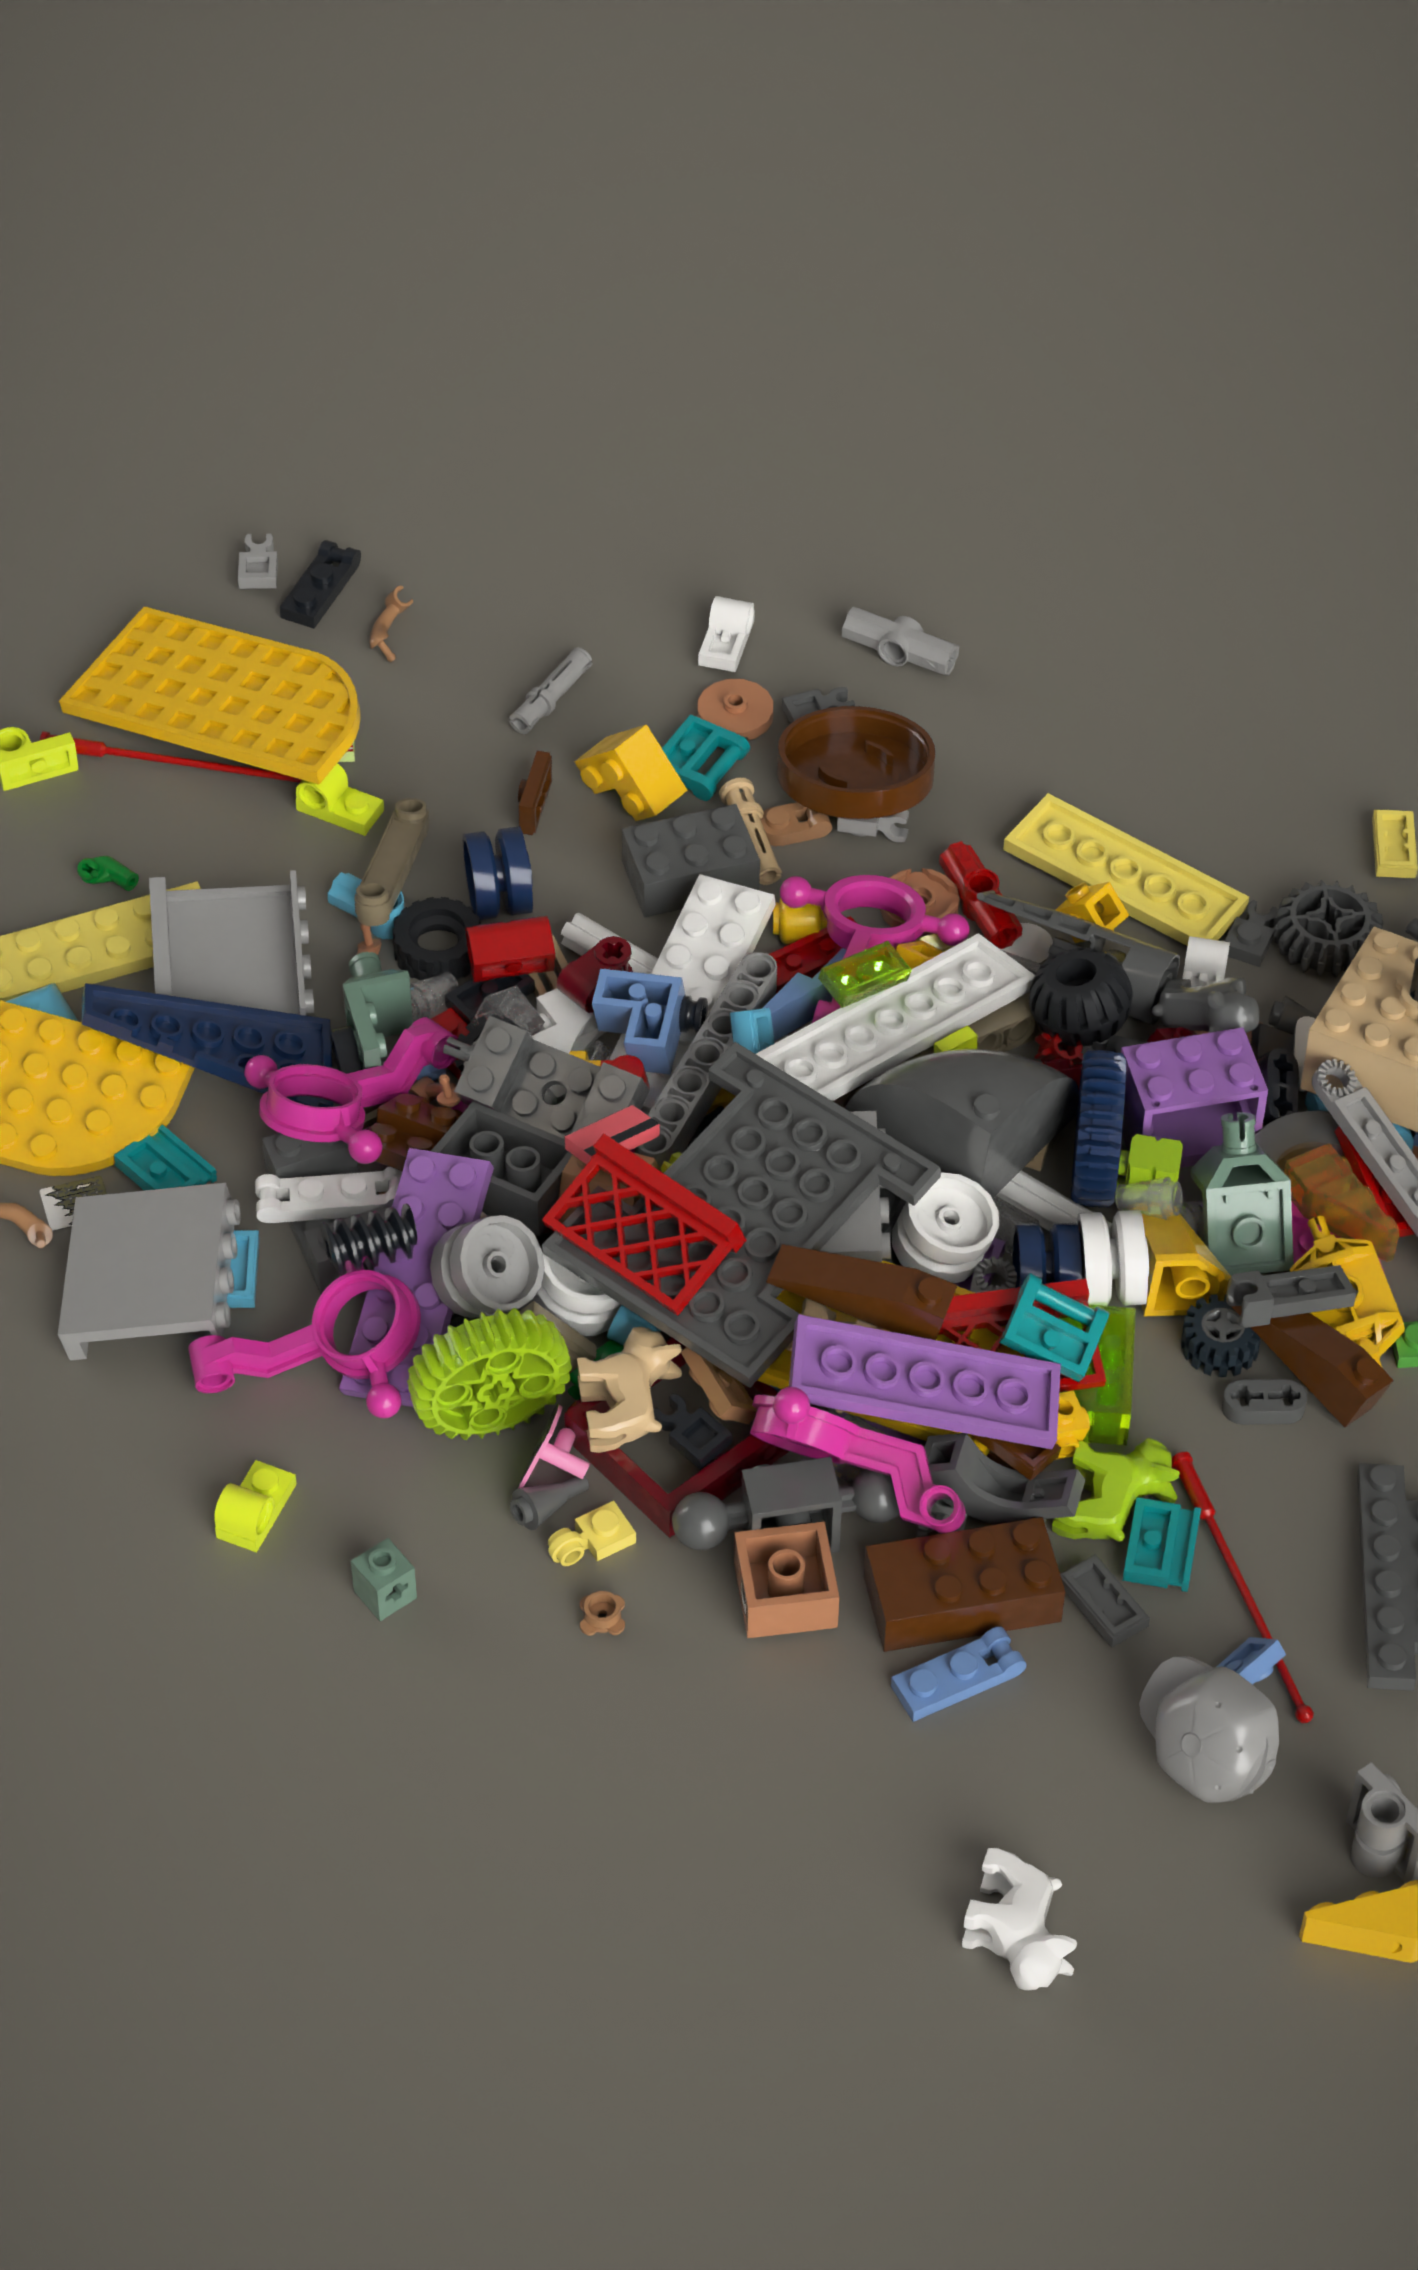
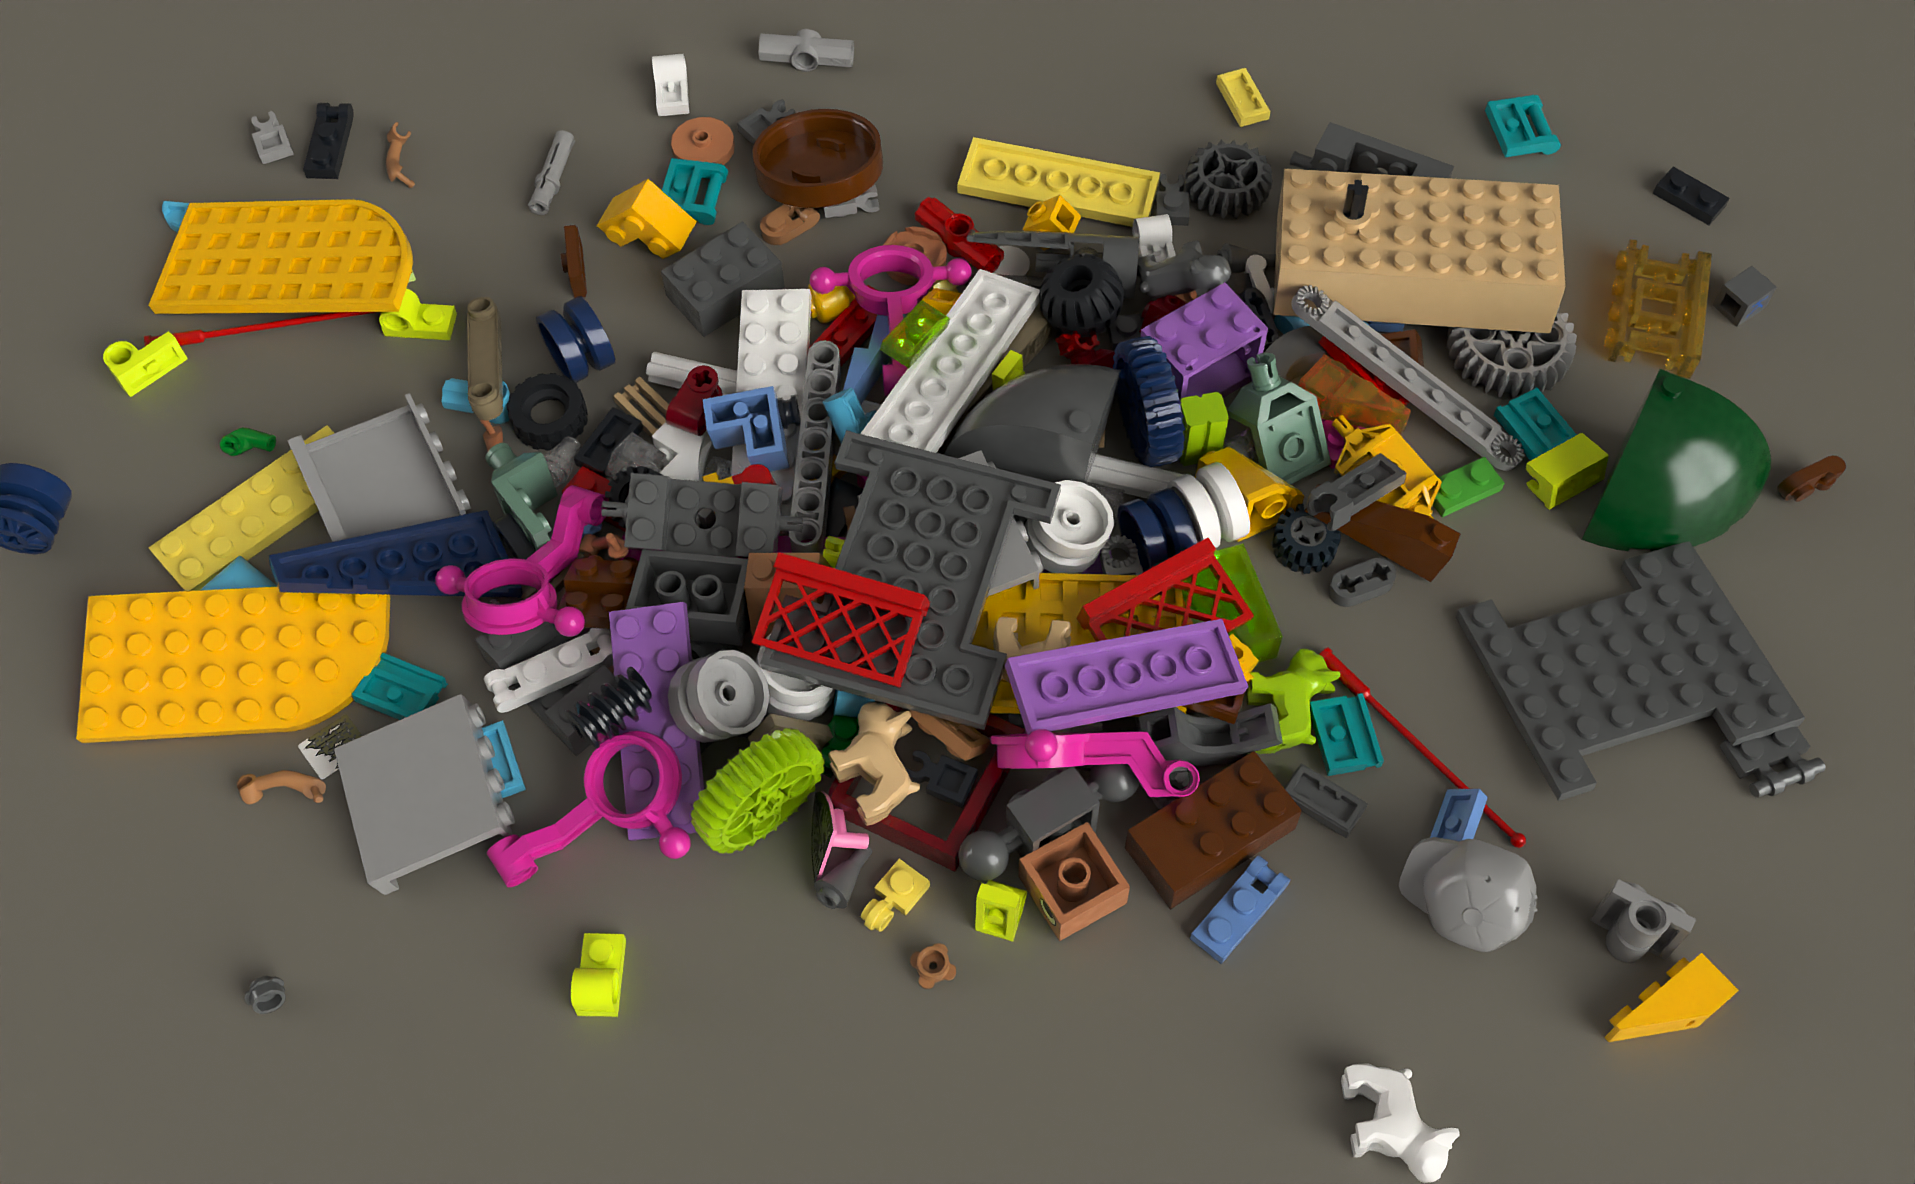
camera: 20 degrees left, 10 degrees up
(123, 612) = (174, 213): none -> medium azure tile
(377, 1574) = (740, 1006): sand green brick -> none
(510, 948) = (613, 401): red piece -> none
(627, 1127) = (782, 535): coral tile -> none
(694, 1579) = (999, 909): none -> neon yellow plate
(751, 814) = (732, 215): tan pin -> none
(869, 1290) = (1059, 612): reddish brown slope -> none
(1050, 1338) = (1203, 599): teal plate -> none
(1153, 1197) = (1212, 446): clear cone -> none

